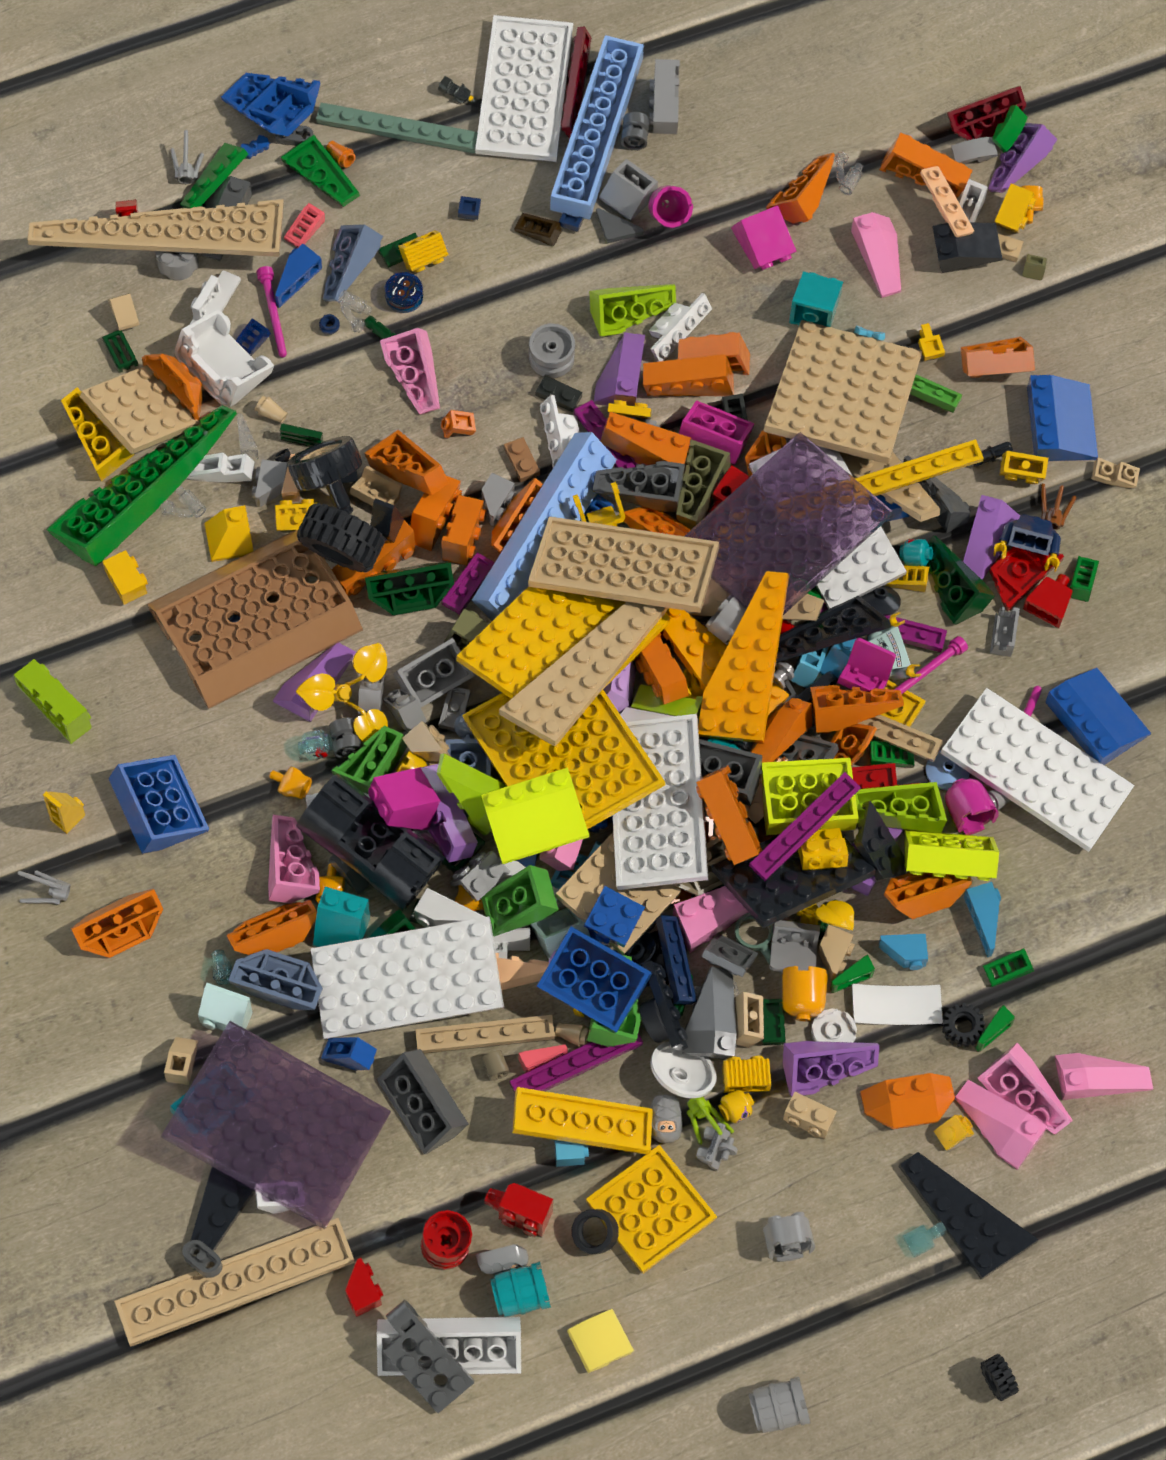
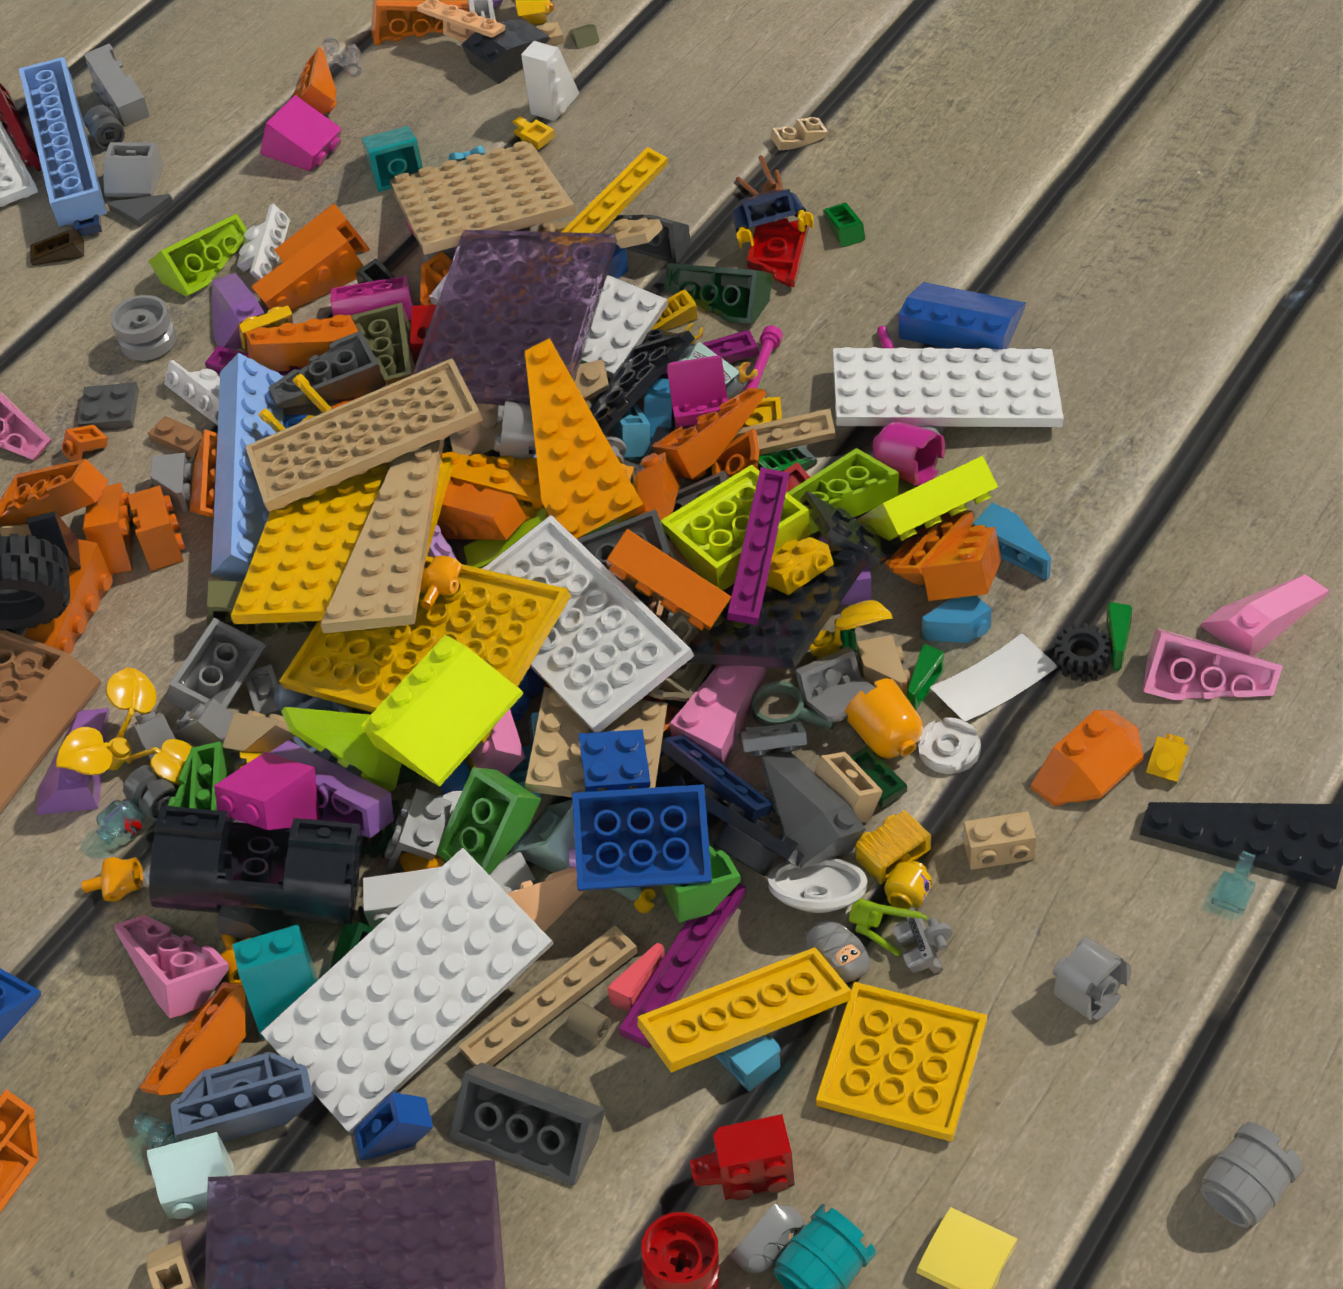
camera: 25 degrees left, 15 degrees down
(410, 587) = (131, 607): dark green wedge -> none
(467, 583) = (195, 572): magenta plate -> none
(492, 401) = (109, 406): none -> dark grey plate
(564, 395) = (189, 359): pearl dark grey plate -> none
(573, 1033) = (658, 929): tan cone -> none
(596, 717) = (440, 578): none -> light orange piece
(612, 1231) = (831, 1121): black tyre -> none
(678, 208) = (183, 153): dark pink cylinder -> none
(818, 1063) = (968, 780): medium lavender wedge -> none
(879, 249) = (421, 95): bright pink wedge -> none
(915, 552) = (662, 282): teal head -> none
(935, 394) = (567, 165): bright green plate -> none
(935, 918) = (964, 565): none -> orange wedge
(944, 777) = (848, 439): light blue dish -> none
(966, 310) = (547, 81): none -> white wedge
(986, 532) = (716, 234): medium lavender wedge -> none
(992, 453) = (666, 180): black axle -> none
(998, 357) = (610, 103): orange wedge -> none
(1004, 632) = (808, 301): light grey hinge -> none
(1004, 1125) = (1217, 715): bright pink wedge -> none
(1005, 961) = (1082, 552): green slope -> none
(1023, 466) = (708, 167): yellow brick -> none
(1050, 600) = (829, 254): red torso -> none
(1061, 418) = (708, 122): slope -> none

